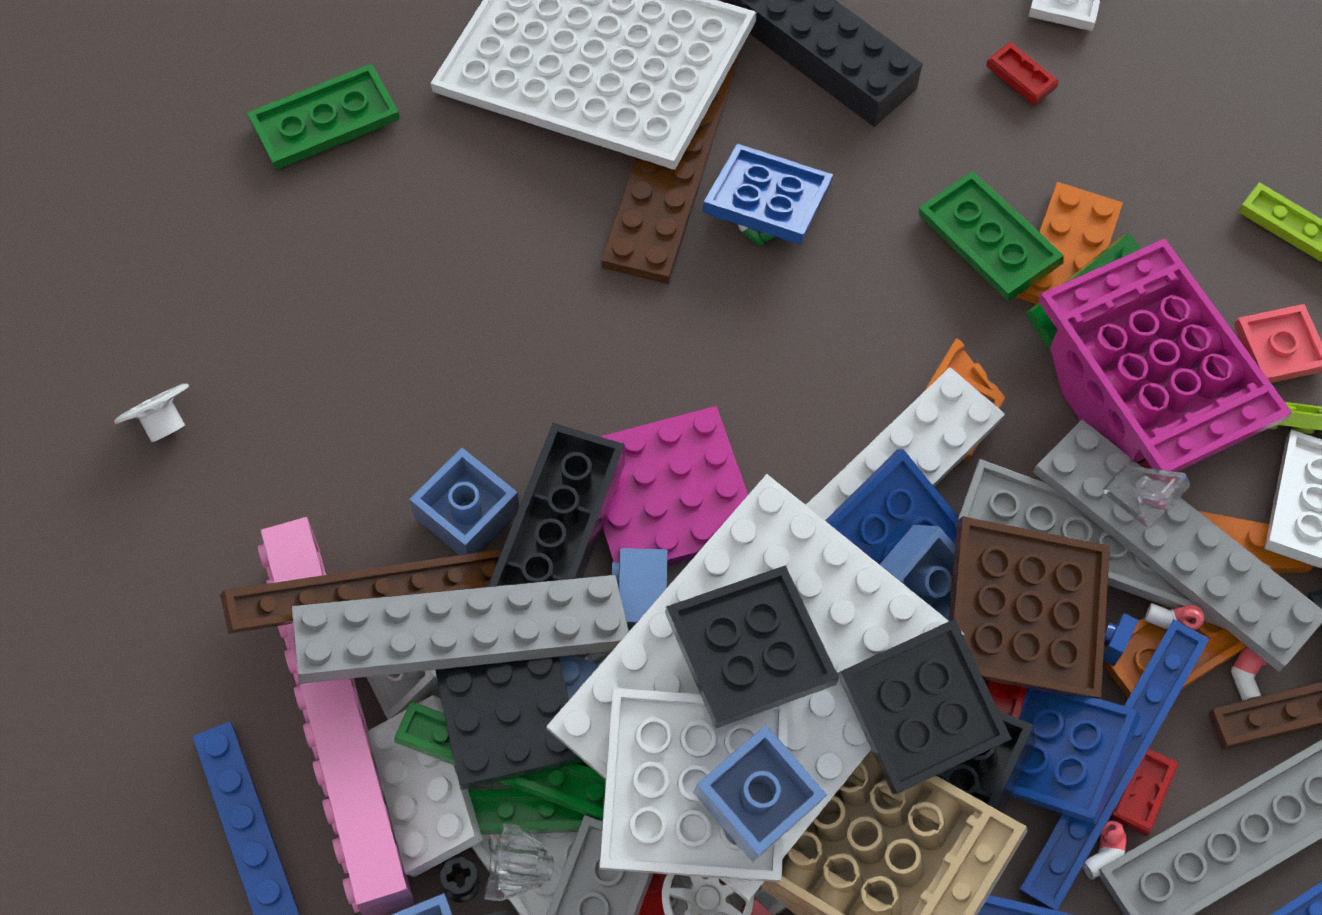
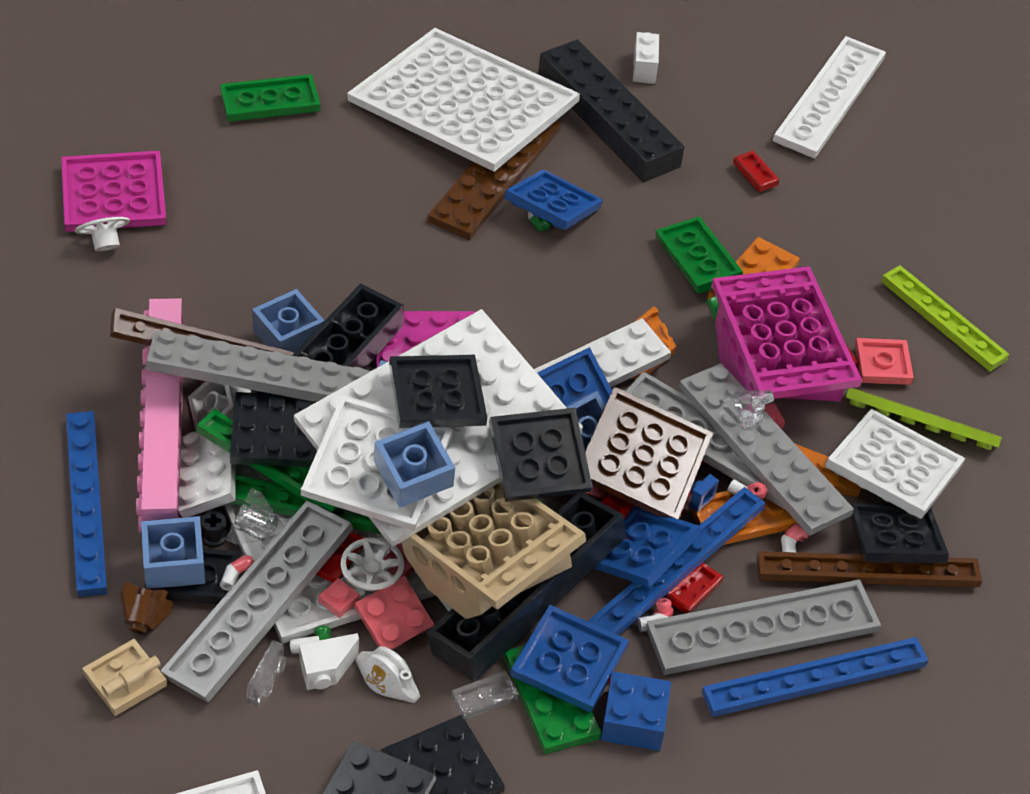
camera: 10 degrees right, 15 degrees down
(147, 332) = (113, 187): none -> dark pink plate

